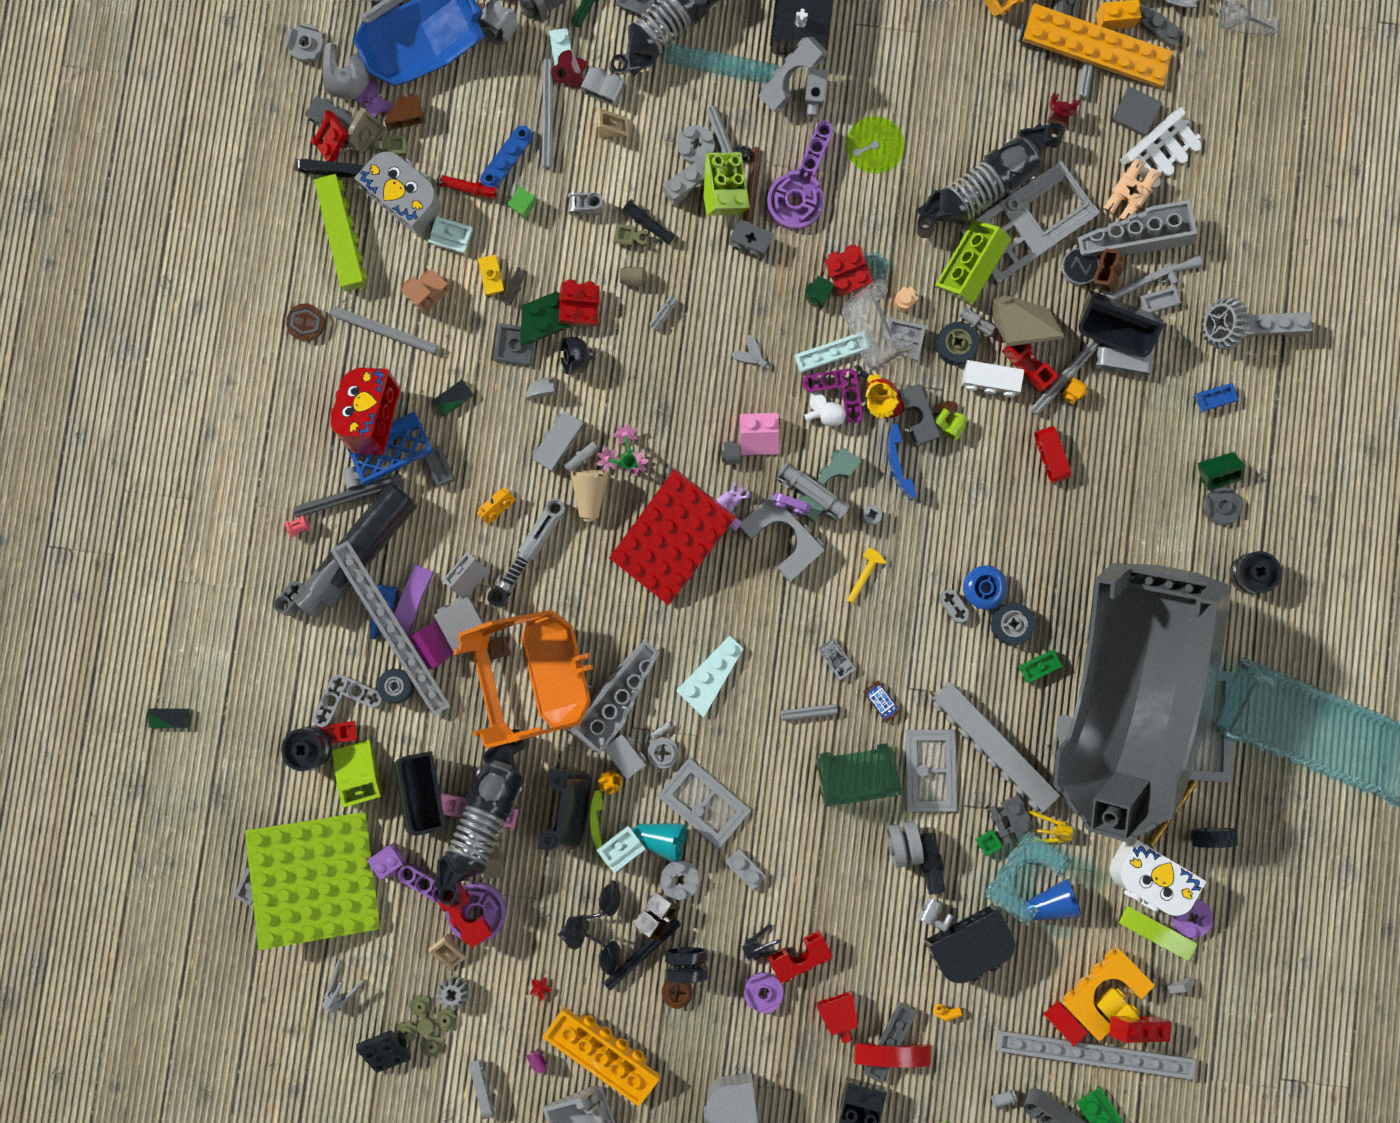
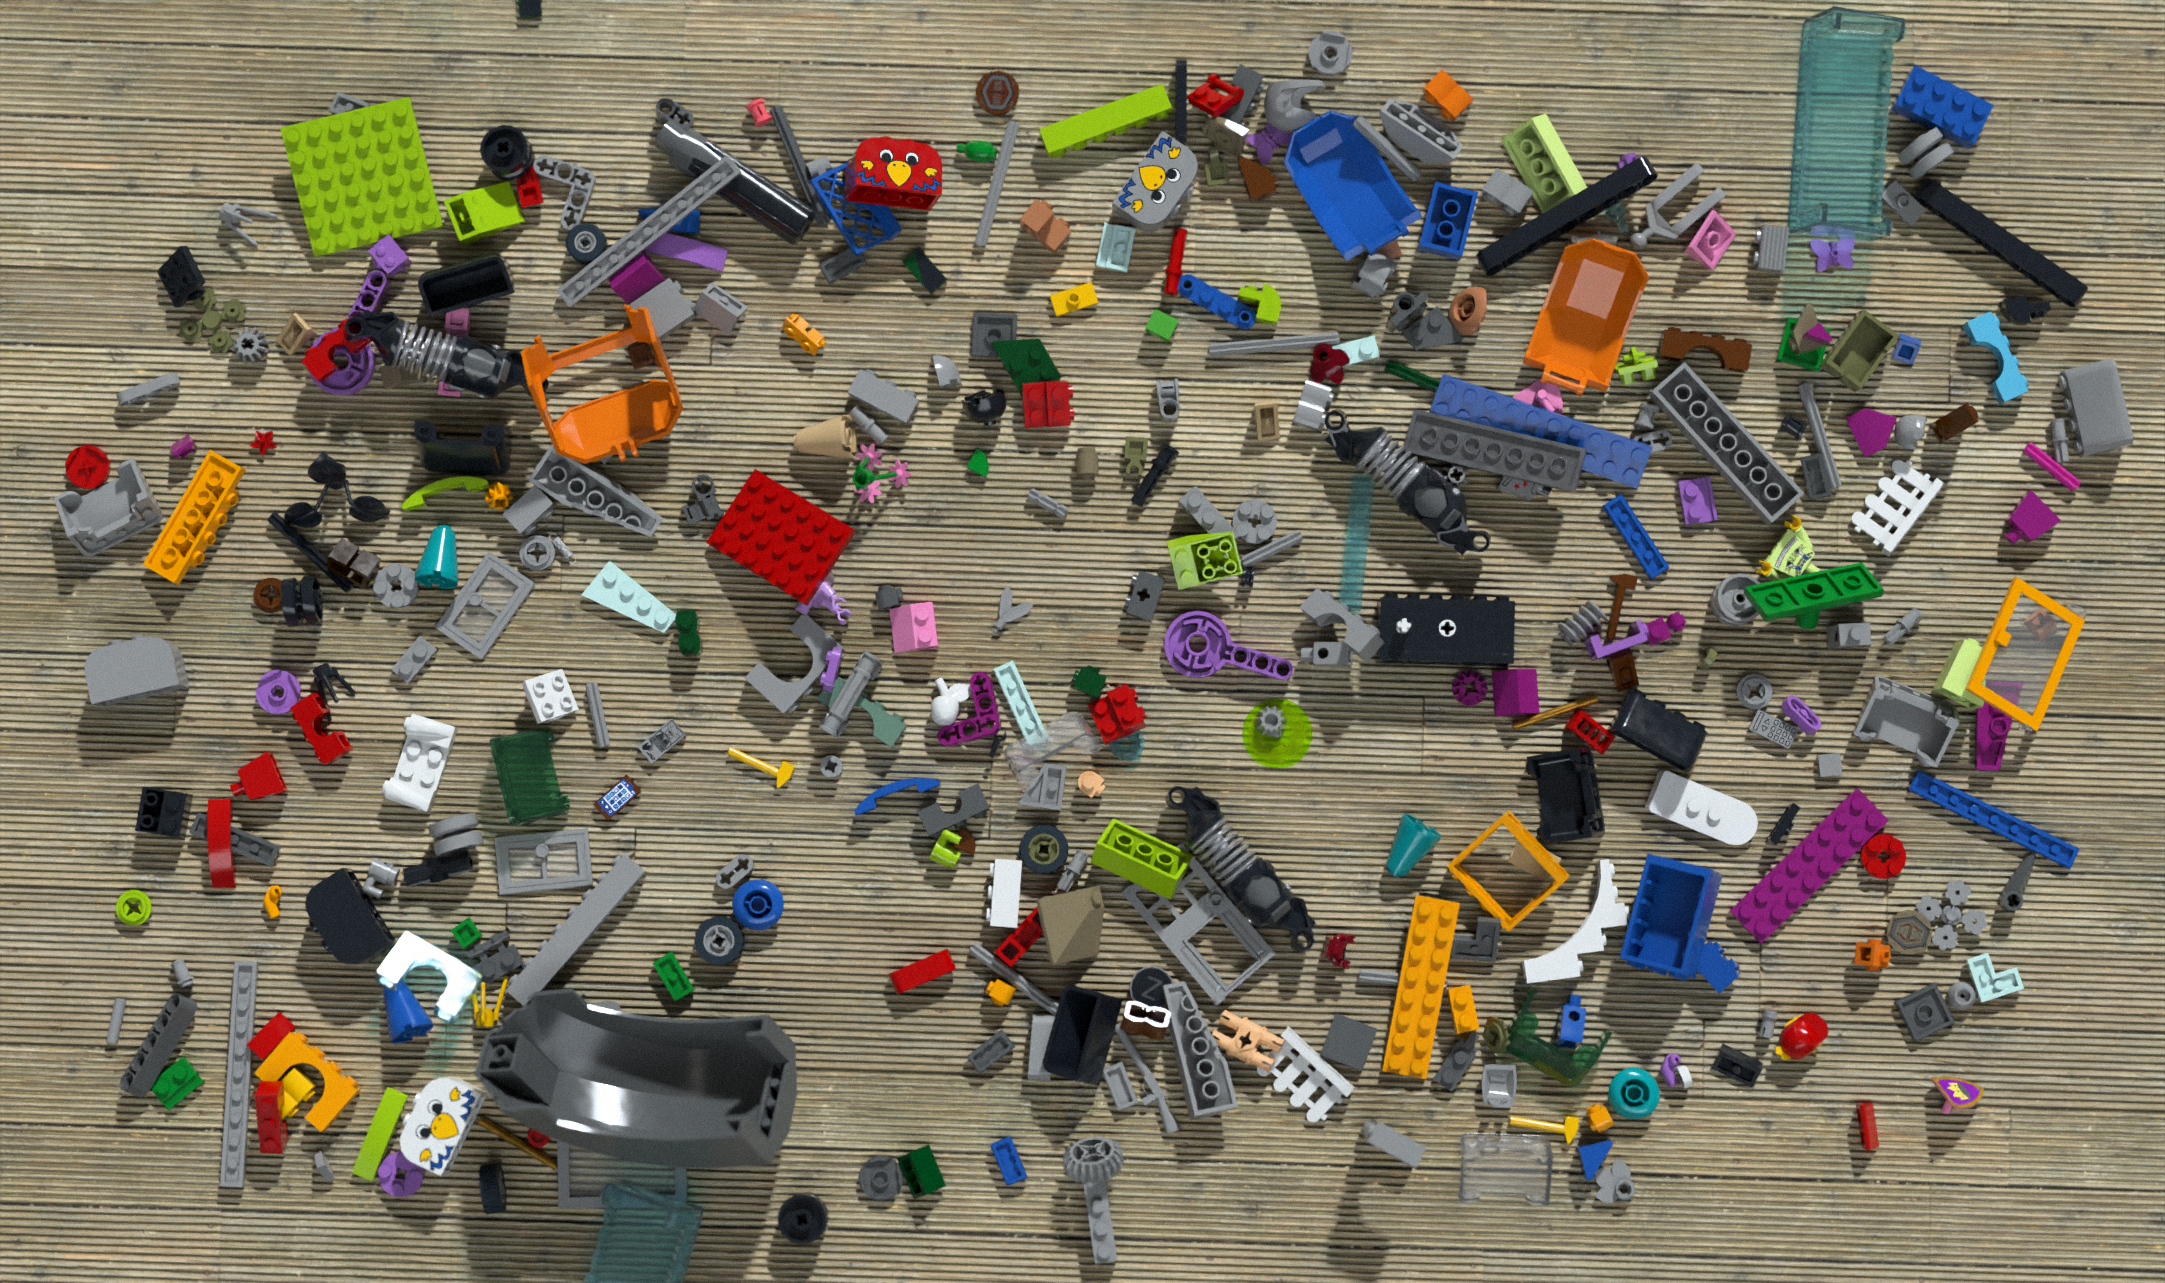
camera: 85 degrees right, 0 degrees up
(353, 342) = (978, 151): none -> green plant
(509, 114) = (1268, 302): none -> lime brick
(514, 286) = (1062, 327): clear smoke pin -> none
(528, 550) = (753, 376): piece -> none
(621, 849) = (423, 514): light aqua plate -> none
(623, 367) = (979, 463): none -> green tile
(637, 603) = (707, 505): none -> dark grey piece
(740, 626) = (688, 627): none -> dark green brick
(752, 182) = (1207, 591): reddish brown bar -> none
(790, 752) = (550, 696): none -> white plate
(837, 871) = (420, 763): none -> white piece
(864, 148) = (1270, 721): none -> light grey piece
(883, 397) = (969, 766): yellow hair -> none
(980, 42) = (1410, 845): none -> teal cone
(1124, 403) = (990, 1051): none -> dark grey plate
(1233, 72) = (1392, 1142): none -> light grey arch

